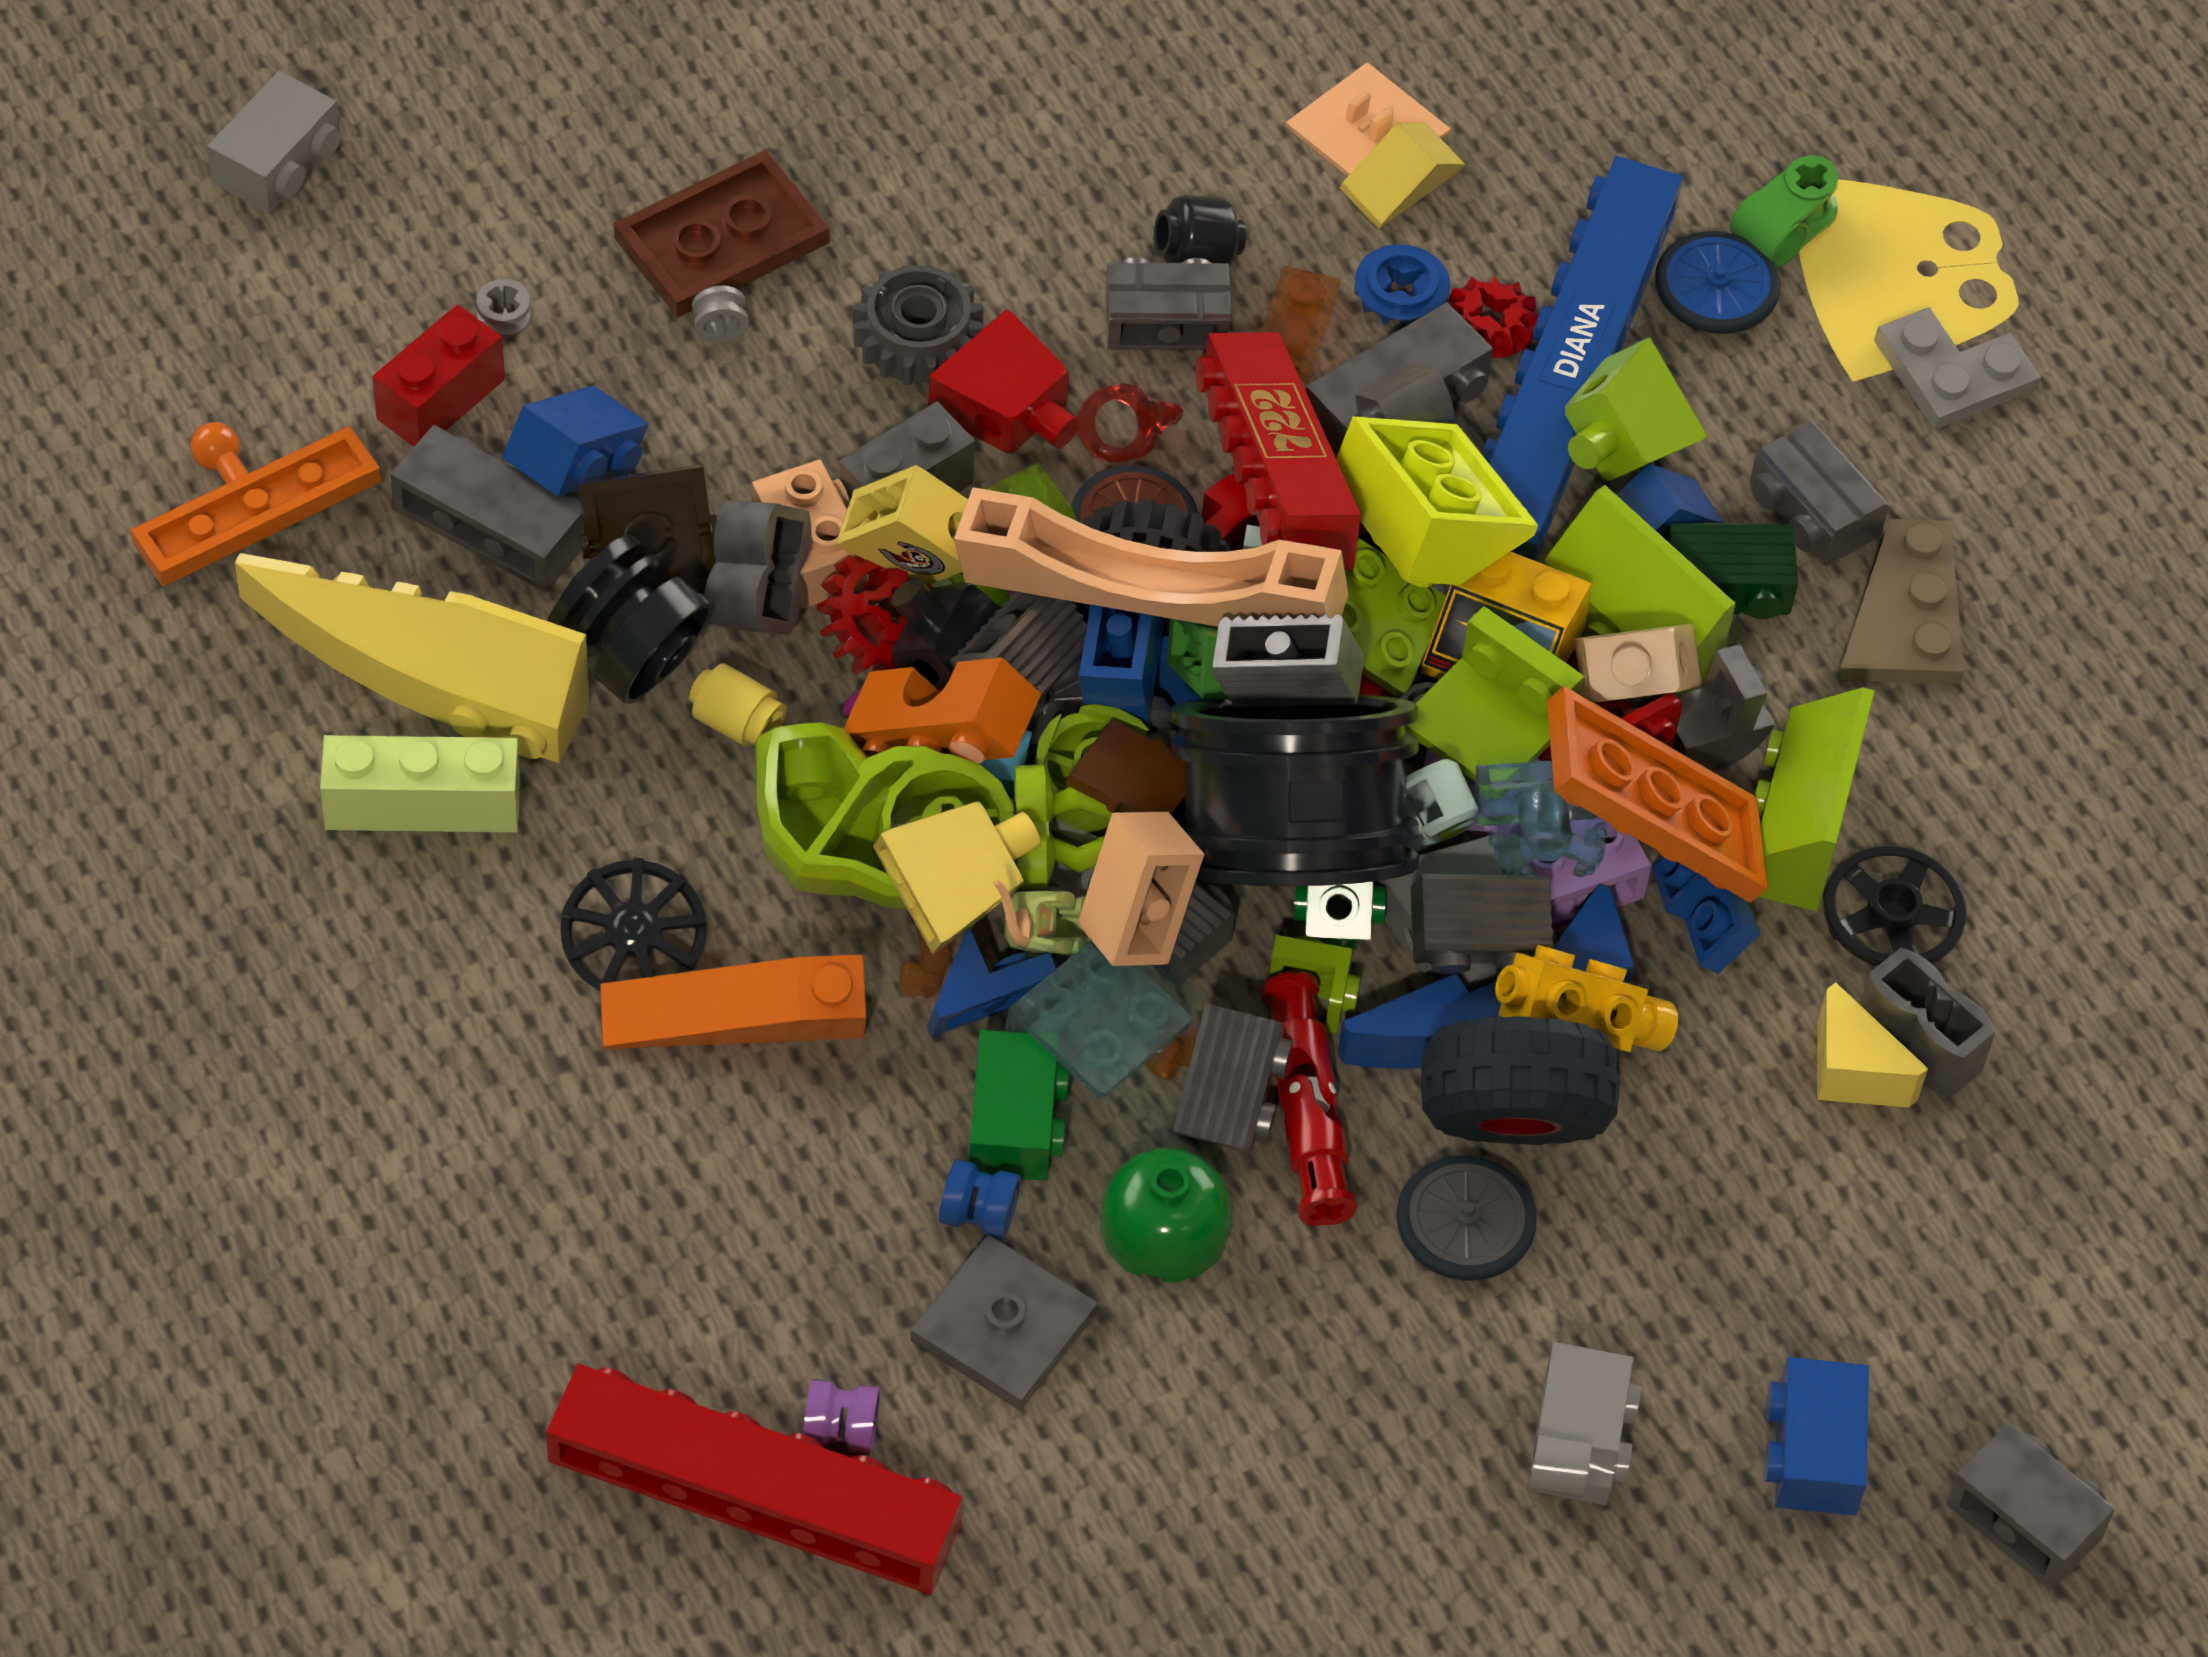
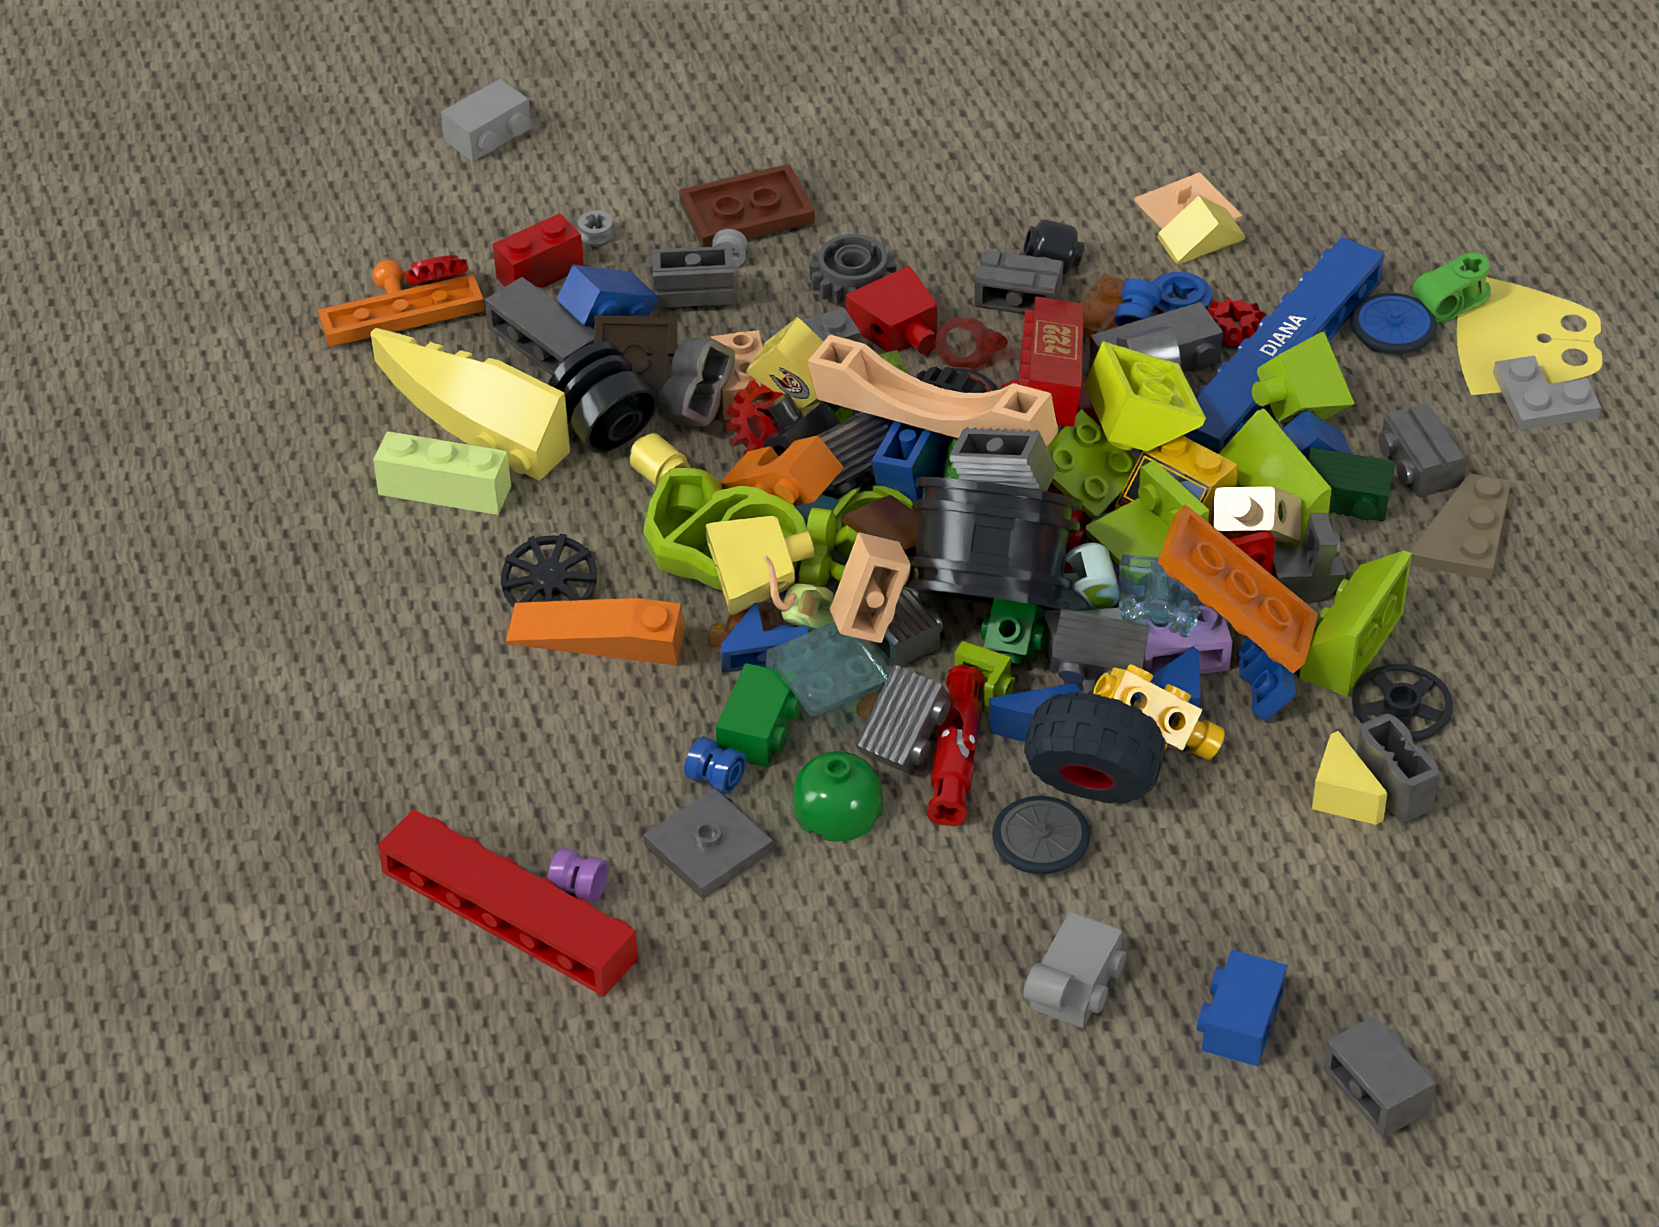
camera: 20 degrees right, 10 degrees down
(291, 429) = (436, 270): none -> red gear
(690, 377) = (693, 276): none -> flat silver brick
(1352, 317) = (1138, 302): none -> blue wheel

